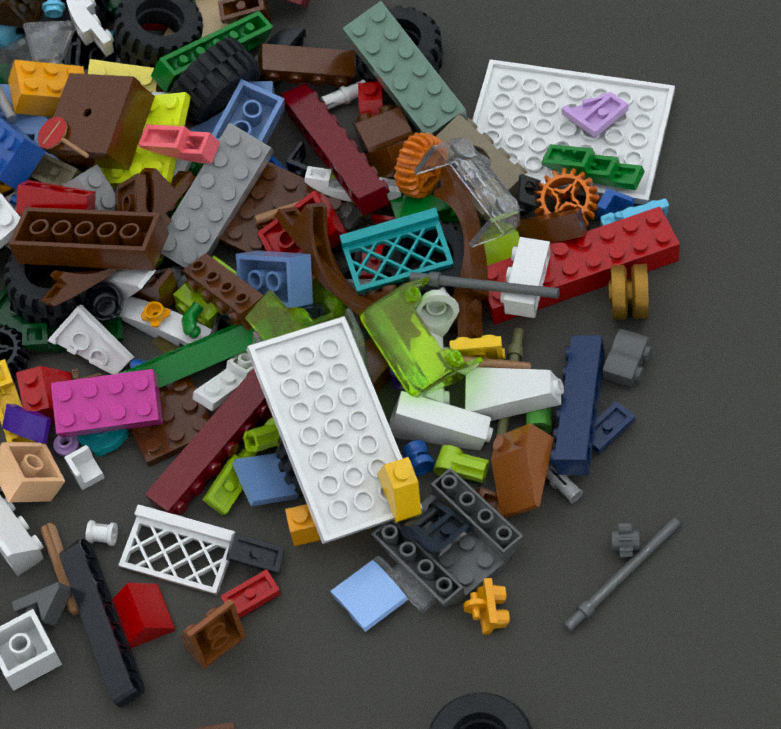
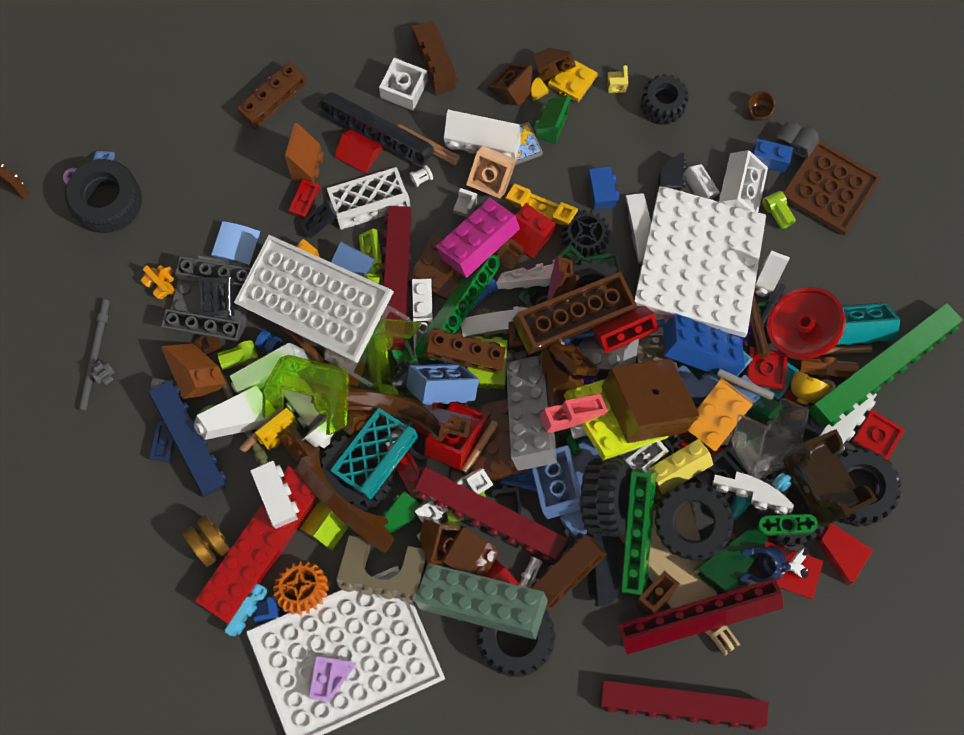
camera: 130 degrees right, 15 degrees up
(26, 423) = (516, 198): dark purple slope -> none
(45, 602) = (416, 115): dark grey slope -> none
(53, 133) = (667, 366): red piece -> none
(150, 312) = (503, 312): light orange plate -> none
(189, 320) = (478, 325): green arm -> none
(401, 489) = (250, 295): yellow slope -> none
(409, 158) = (410, 531): orange gear -> none
(438, 279) = (329, 447): dark grey bar -> none
(481, 182) = (371, 546): clear windscreen -> none
(527, 202) = (329, 562): black bracket -> none
(554, 226) = (291, 554): reddish brown slope -> none
(600, 168) = (300, 628): green slope -> none
(626, 358) = (182, 498): dark grey brick -> none

